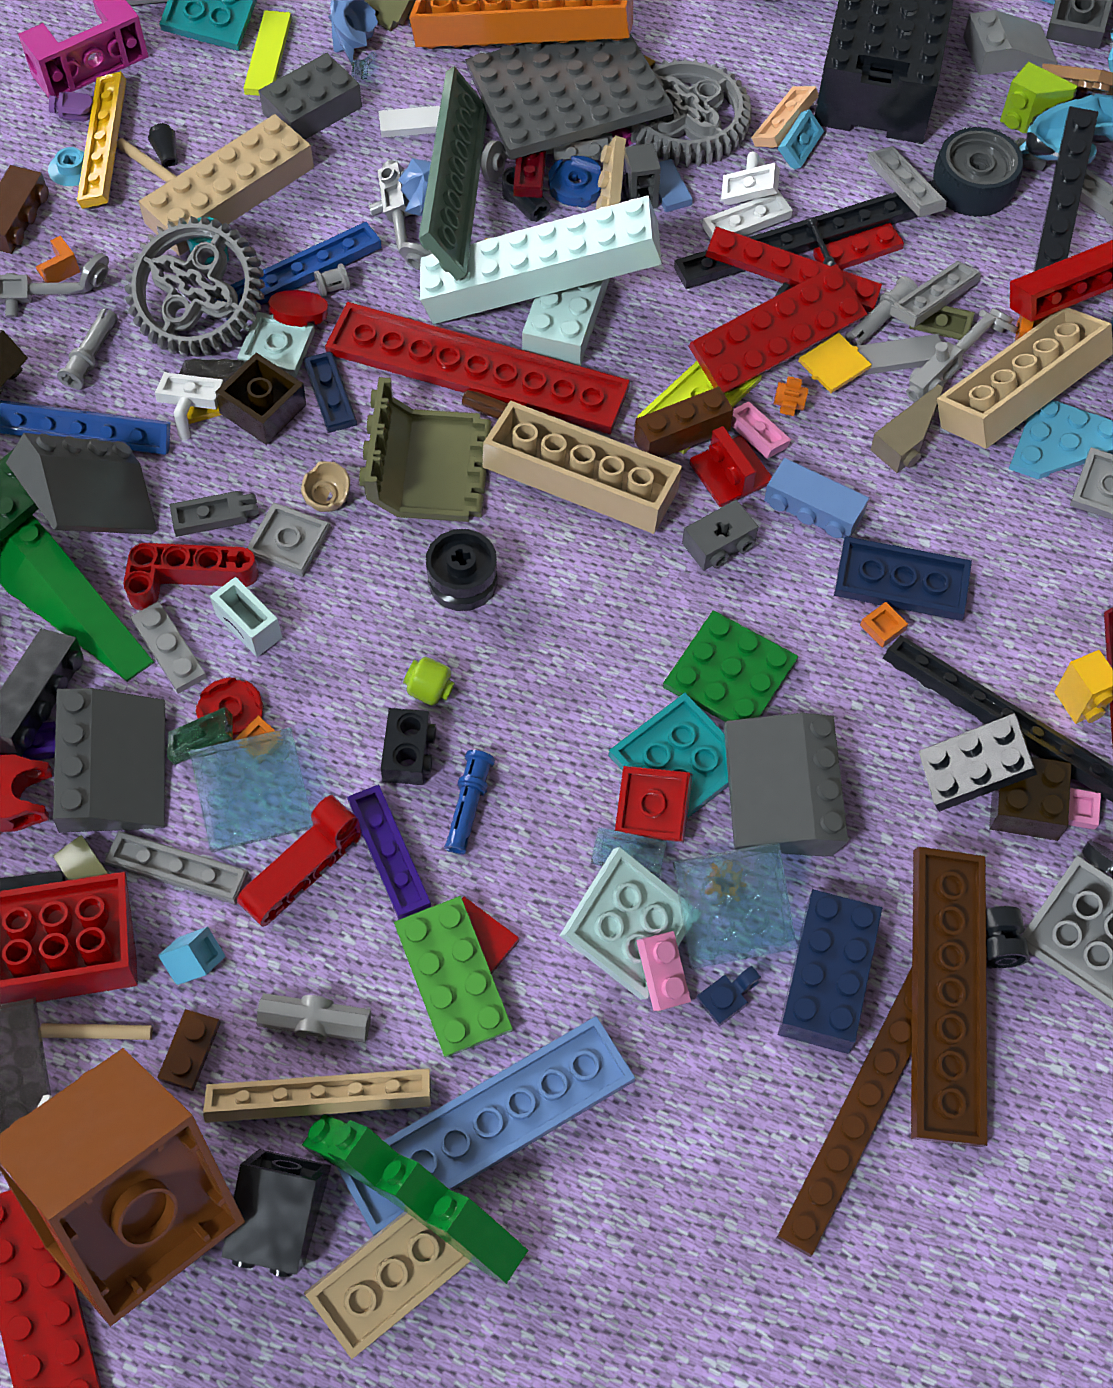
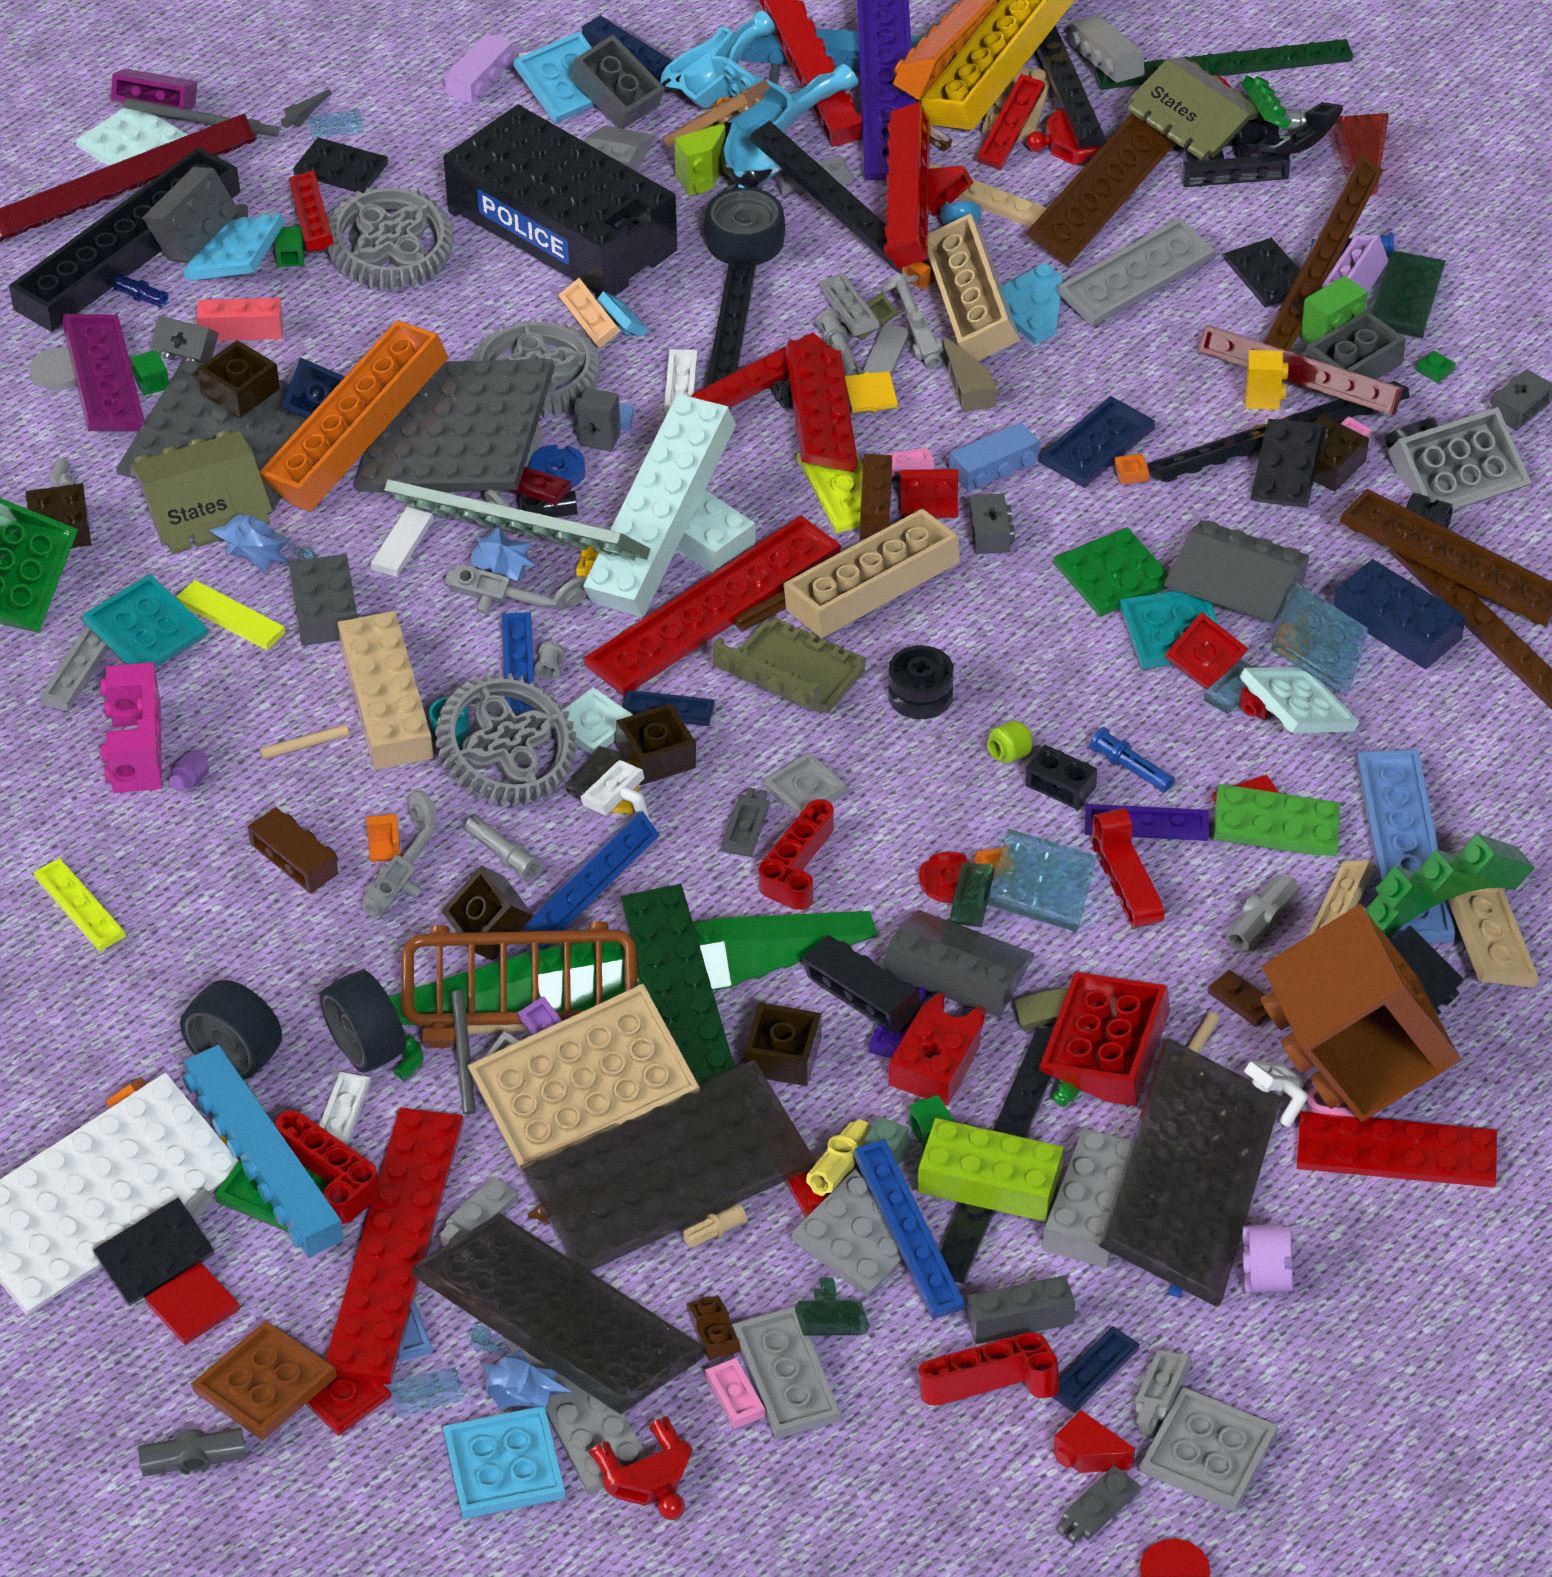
camera: 60 degrees left, 15 degrees down
(62, 171) = (255, 806): medium azure piece -> none
(84, 483) = (675, 868): dark grey slope -> none
(101, 140) = (255, 760): yellow plate -> none
(164, 144) = (293, 720): black cone -> none
(168, 647) = (863, 896): light grey plate -> none
(176, 867) = (1078, 955): light grey tile -> none
(192, 956) = (1165, 966): medium azure panel -> none
(246, 616) = (877, 827): light aqua brick -> none
(298, 307) = (572, 688): red tile -> none
(322, 480) = (776, 731): tan hair -> none
(611, 176) = (595, 444): tan plate -> none
(663, 971) = (1344, 700): bright pink plate -> none
(726, 999) = (1381, 683): dark blue plate -> none
(753, 183) = (650, 360): white plate -> none
(790, 396) = (886, 429): orange gear -> none
(812, 223) = (724, 342): black hinge -> none
(862, 246) = (760, 331): red plate -> none
(906, 181) = (721, 271): light grey tile -> none

